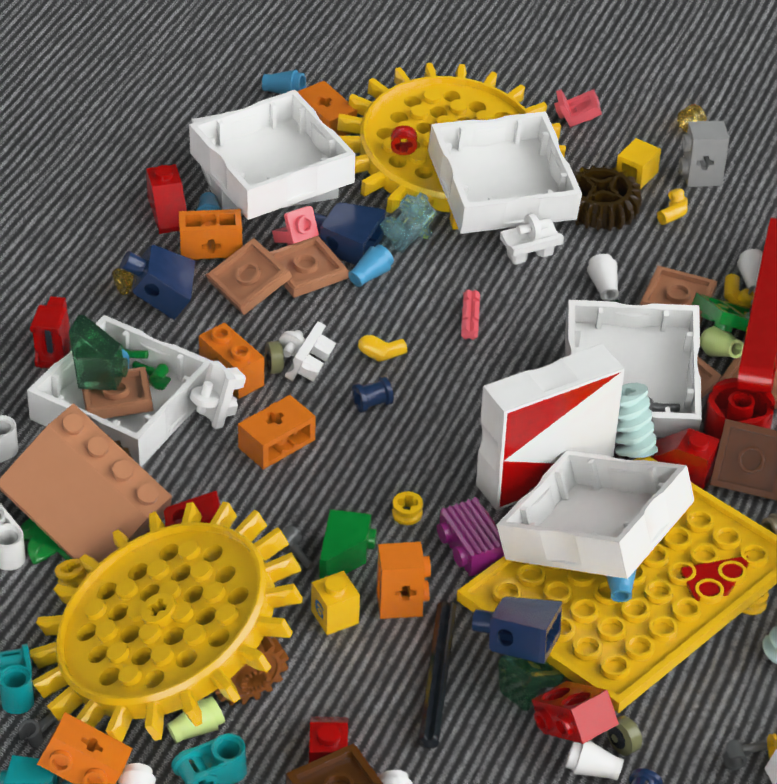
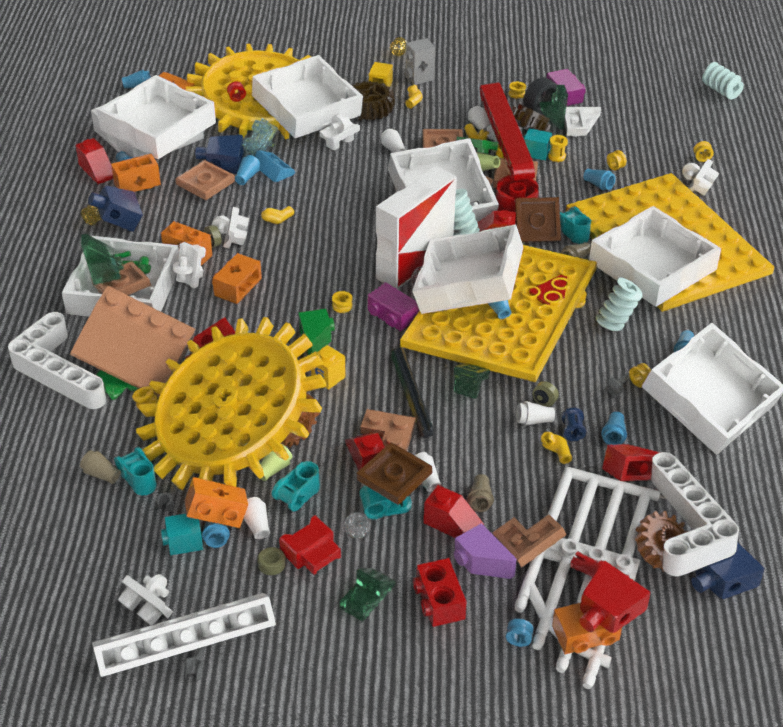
camera: 20 degrees left, 0 degrees up
(51, 332) = (59, 256): red piece -> none
(249, 276) = (172, 193): nougat plate -> none
(299, 226) = (193, 156): coral bracket -> none
(372, 394) = (287, 241): dark blue bush -> none
(384, 723) = (390, 426): none -> nougat plate
(402, 580) = (365, 341): orange brick -> none
(413, 268) = (273, 166): none -> dark azure slope
(470, 314) = (322, 183): coral axle -> none
(521, 627) = (457, 346): dark blue torso -> none
(574, 712) = (512, 387): red brick -> none
(578, 109) = (330, 54): coral bracket -> none

